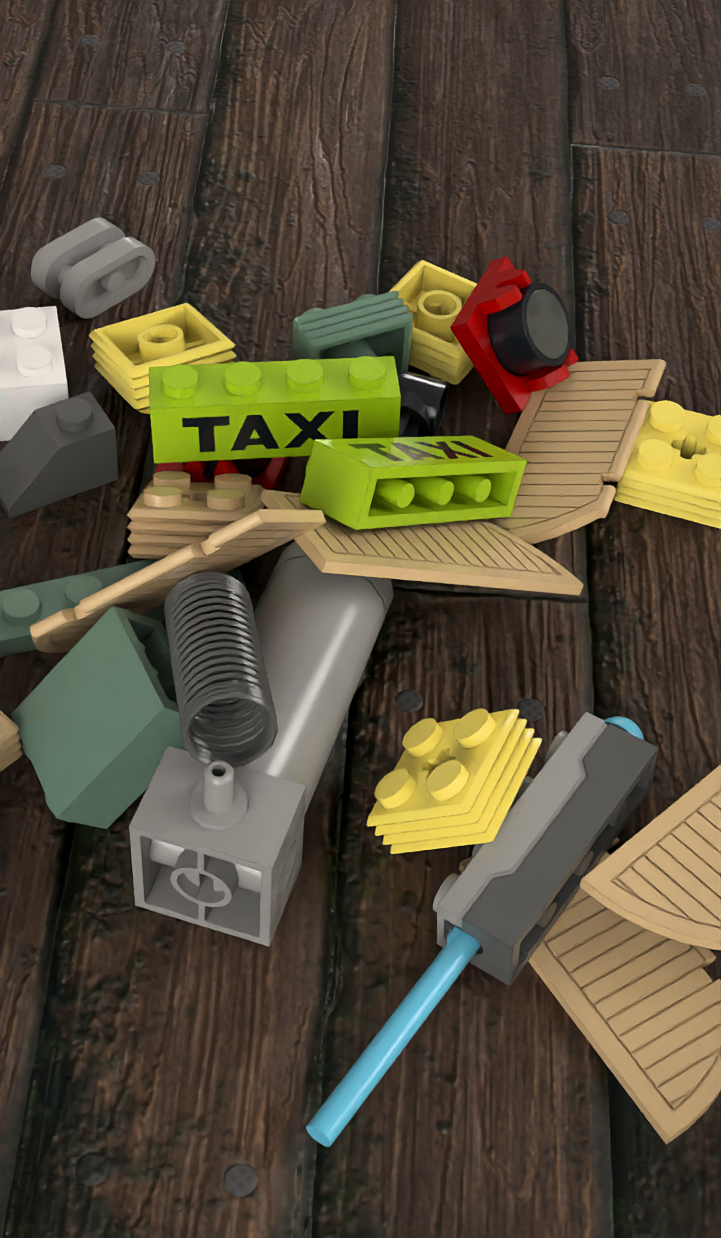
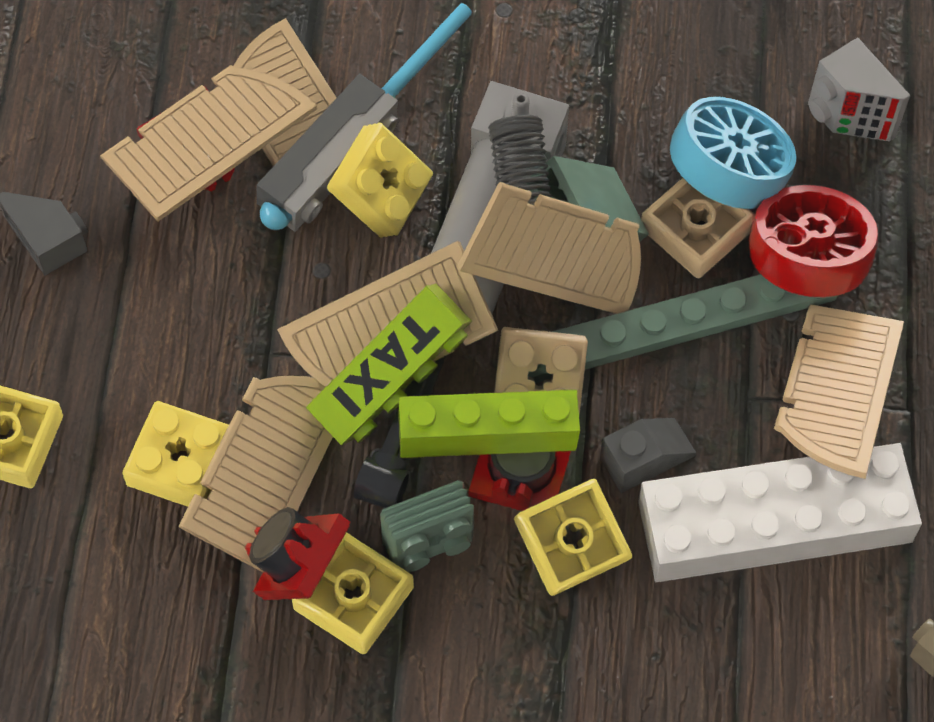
camera: 175 degrees left, 15 degrees up
(92, 267) = (638, 684): light grey brick -> none

